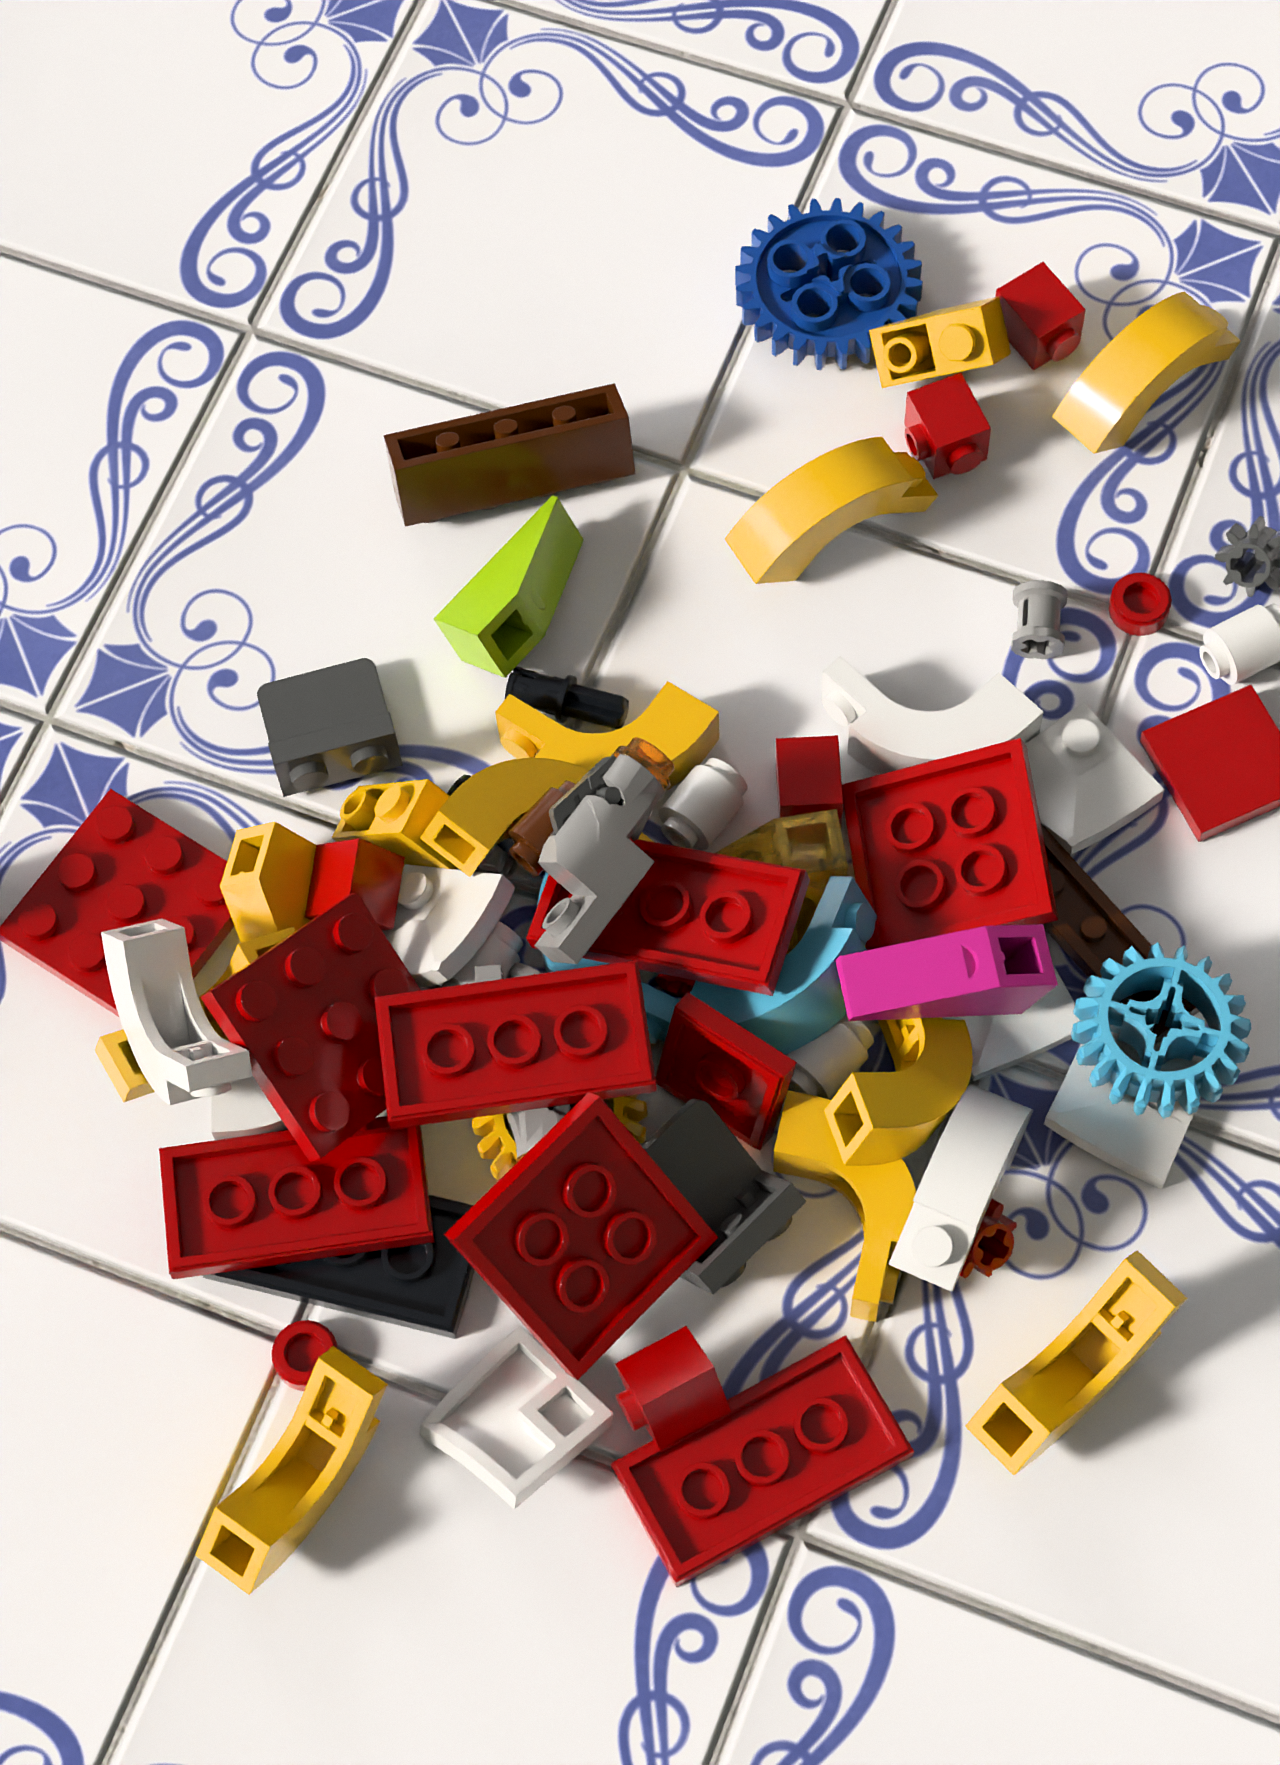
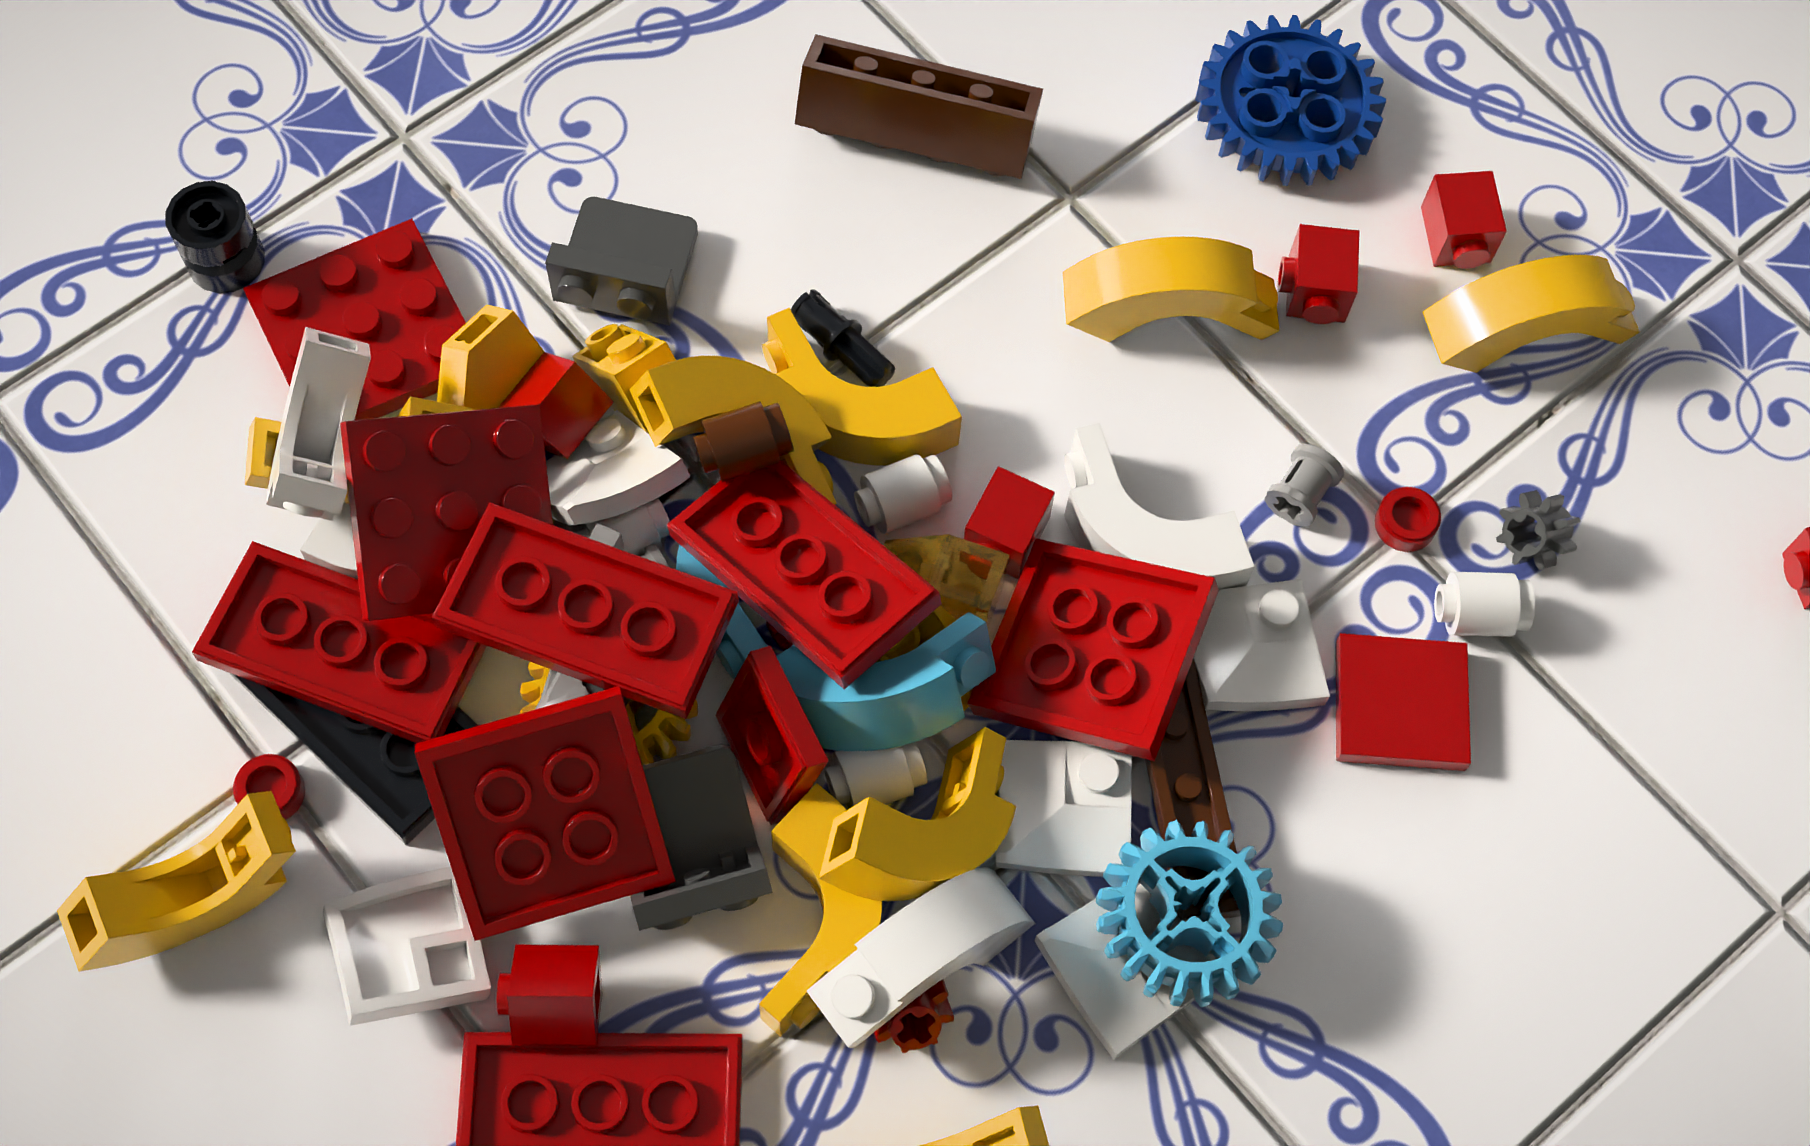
camera: 20 degrees right, 0 degrees up
(515, 594) = (853, 225): lime slope -> none
(593, 847) = (758, 470): light grey plate -> none
(941, 342) = (1358, 197): yellow slope -> none
(950, 975) = (1017, 756): dark pink slope -> none

